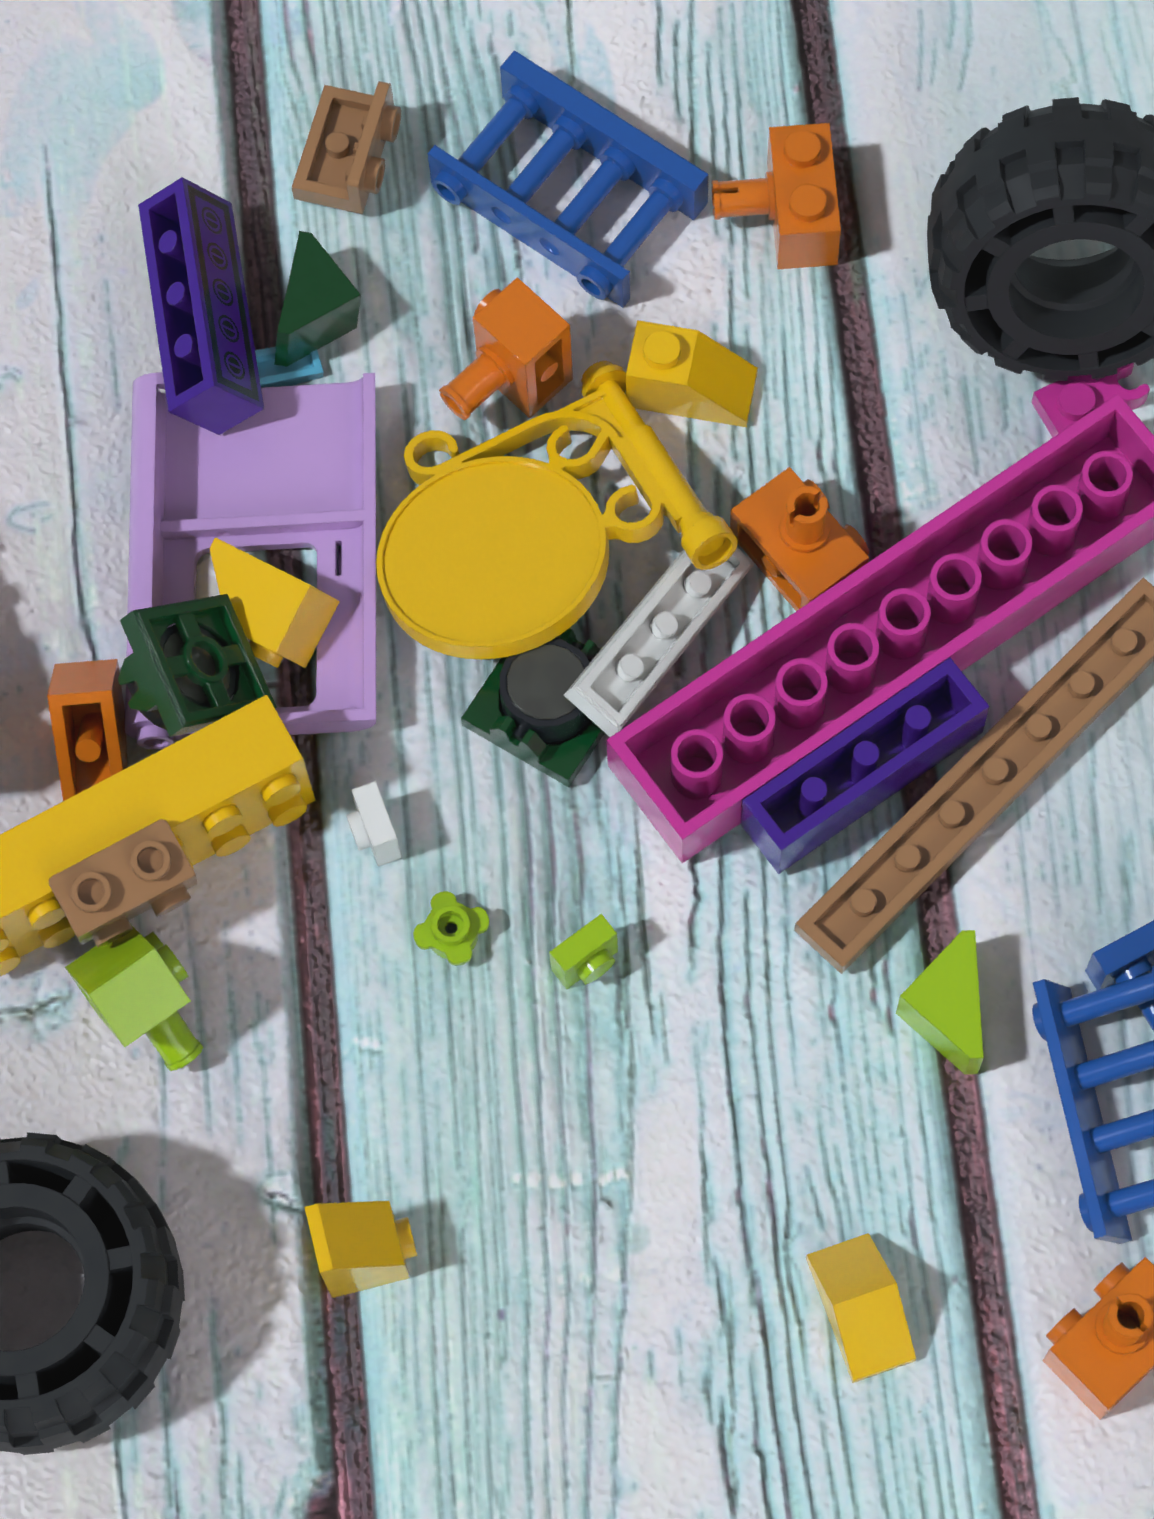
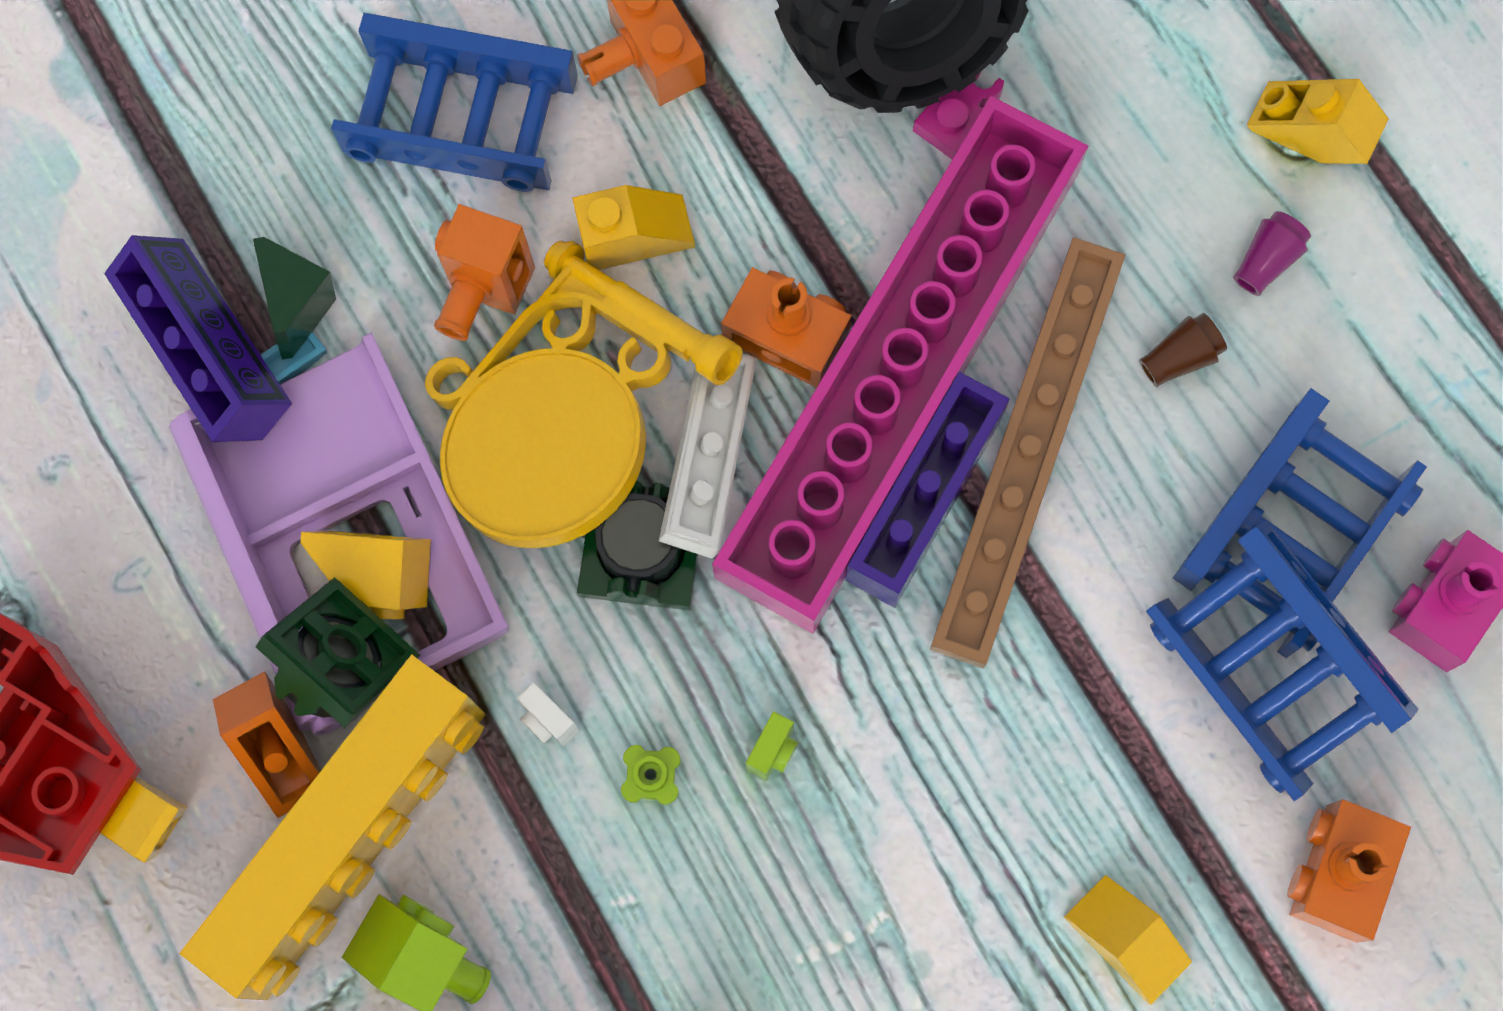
camera: 25 degrees left, 5 degrees up
(123, 883) = (360, 870): medium nougat bracket -> none
(346, 148) = (258, 151): medium nougat bracket -> none
(946, 1004) = (1084, 657): lime slope -> none

